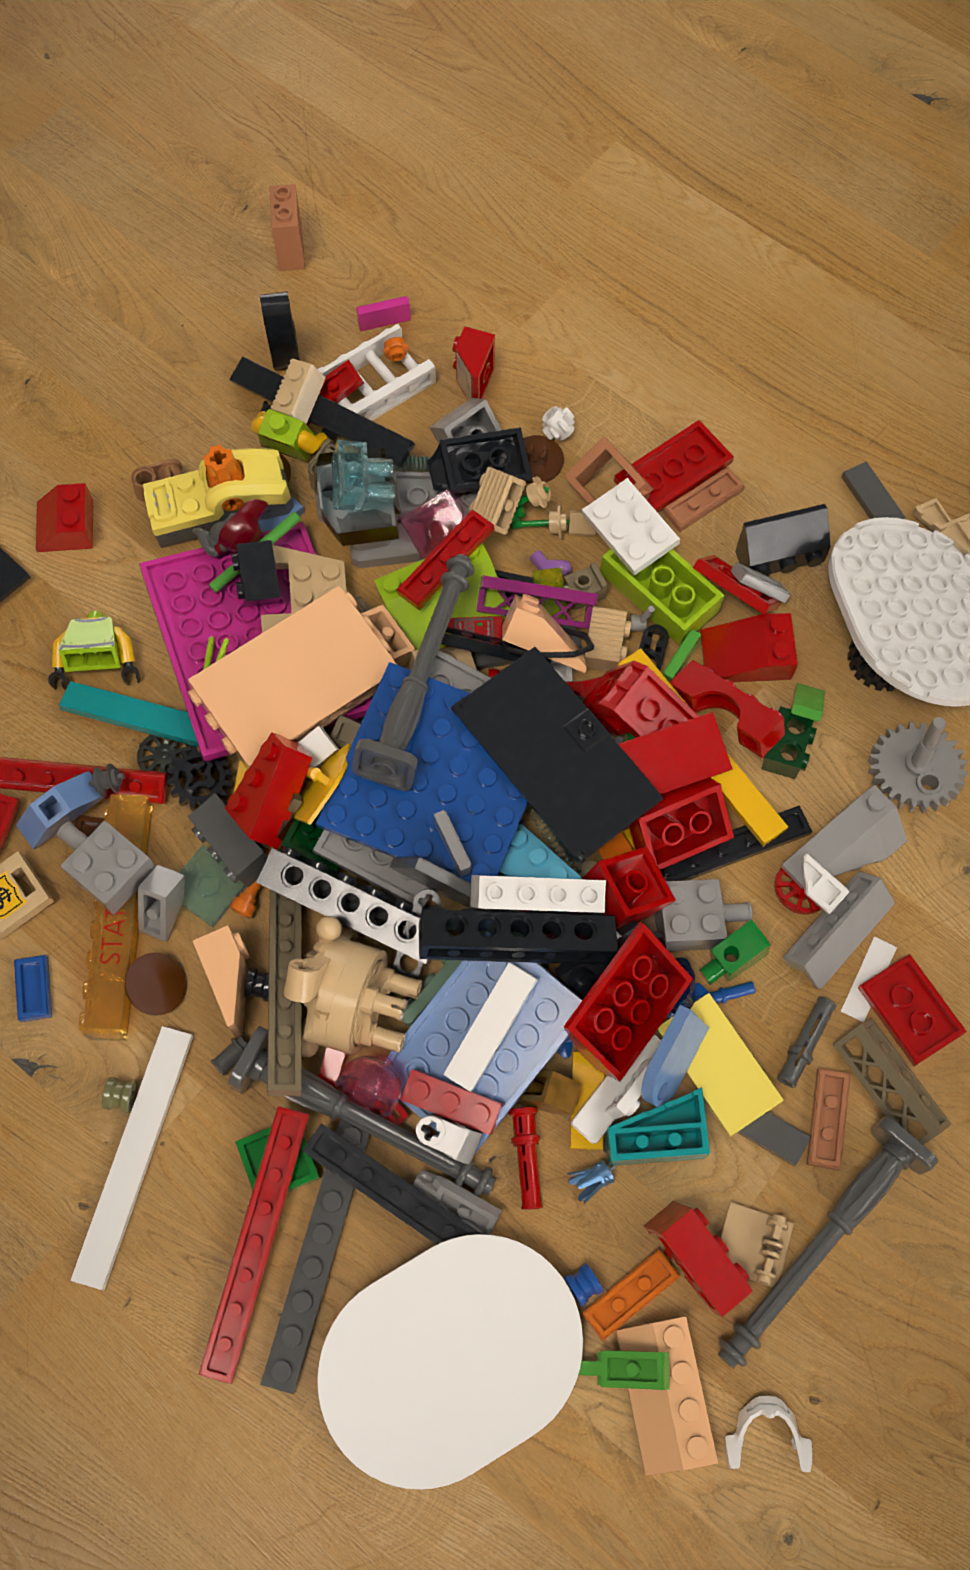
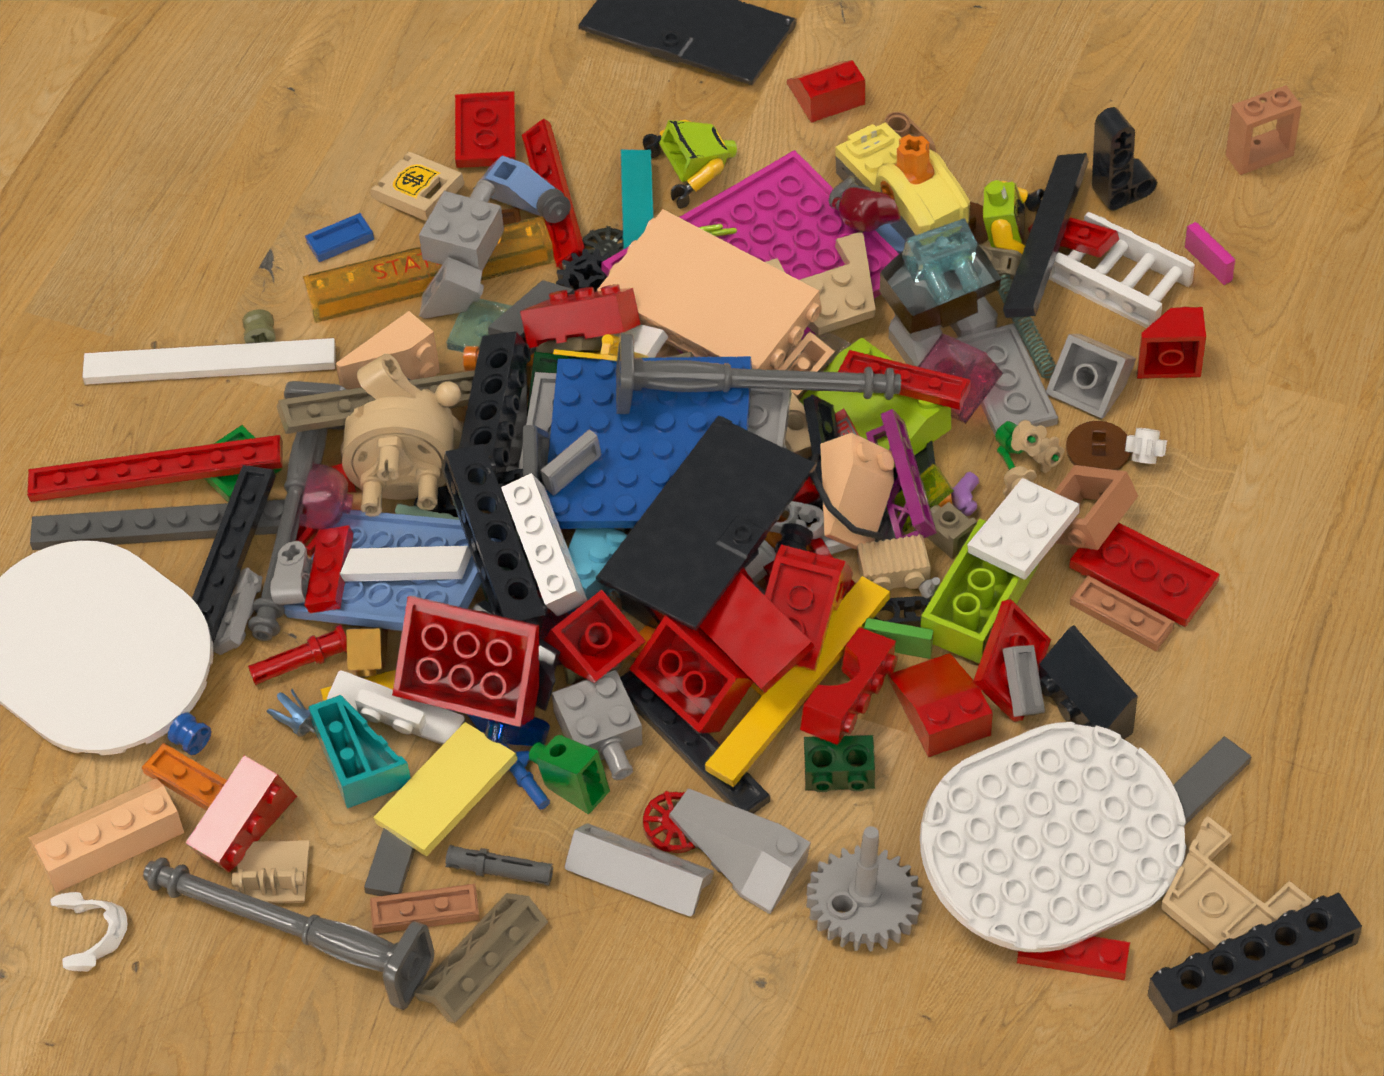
camera: 75 degrees right, 15 degrees down
(154, 984) = (367, 313): reddish brown piece -> none
(257, 573) = (816, 235): black brick -> none
(274, 535) = (846, 230): bright green bar -> none
(298, 390) = (1047, 200): tan brick -> none
(395, 349) = (1158, 270): orange plate -> none
(464, 459) = (1055, 389): black slope -> none
(498, 498) = (1002, 406): tan brick -> none
(629, 1369) = (115, 781): bright green hinge -> none
(673, 1057) = (430, 725): medium blue tile -> none
(808, 702) = (893, 763): bright green tile -> none
(821, 885) = (674, 826): white tile -> none
(876, 960) = (595, 915): white sticker -> none
(912, 1010) = (572, 959): red tile -> none

